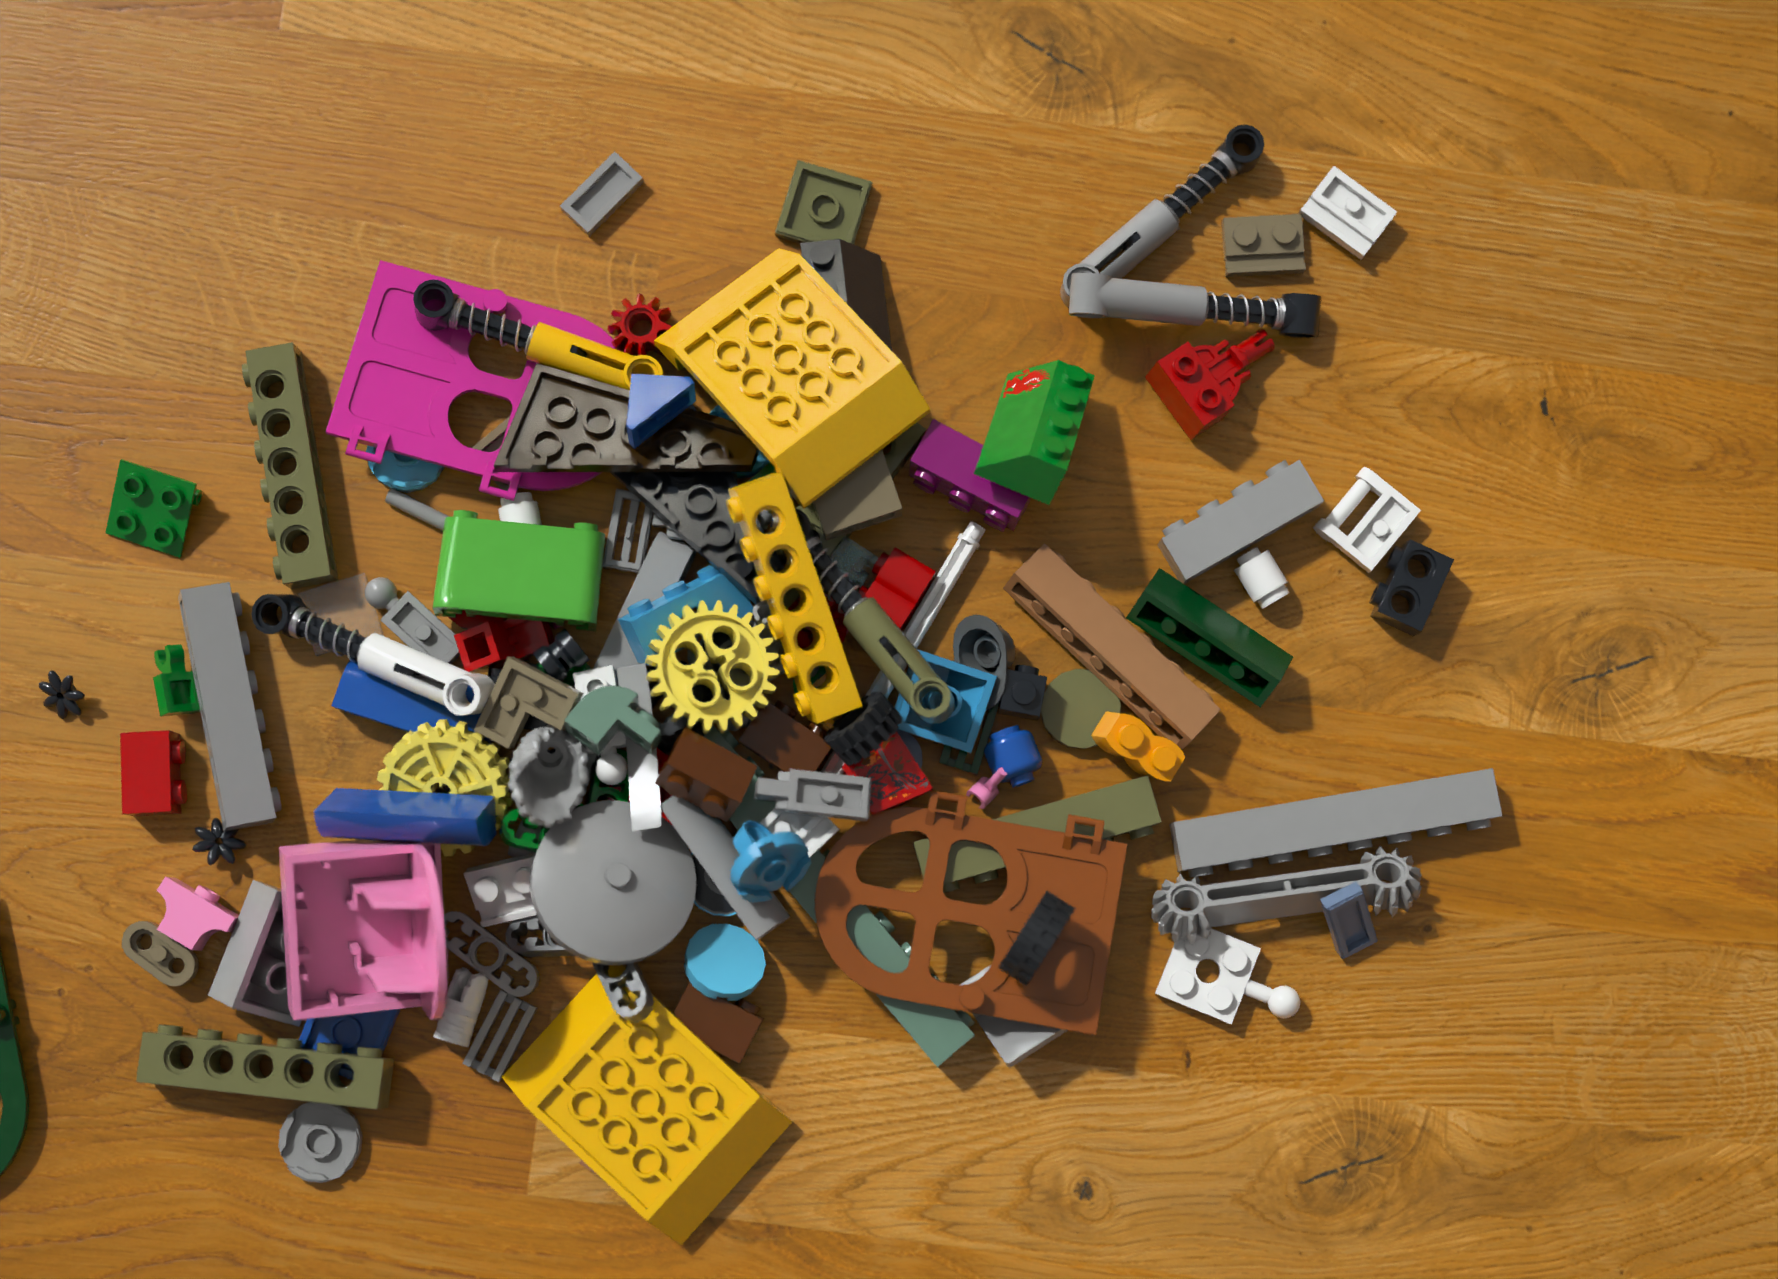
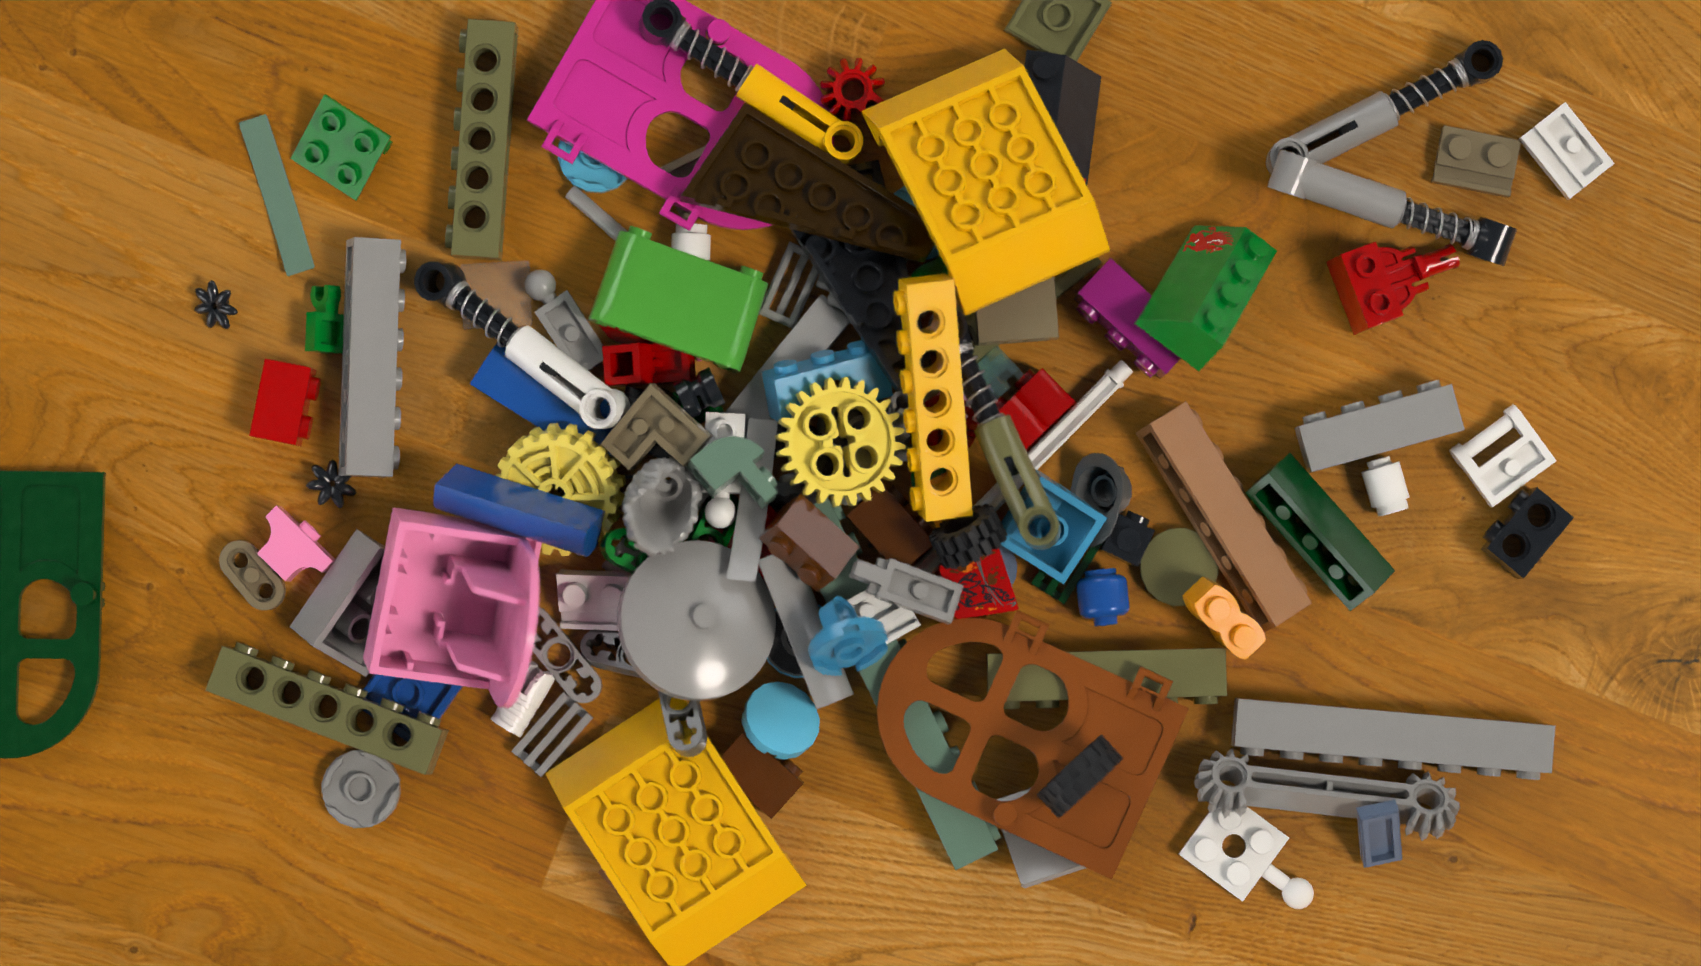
camera: 20 degrees right, 5 degrees up
(100, 571) = (277, 195): none -> sand green sticker
(655, 402) = (849, 174): slope -> none
(986, 788) = (1070, 620): bright pink hand -> none

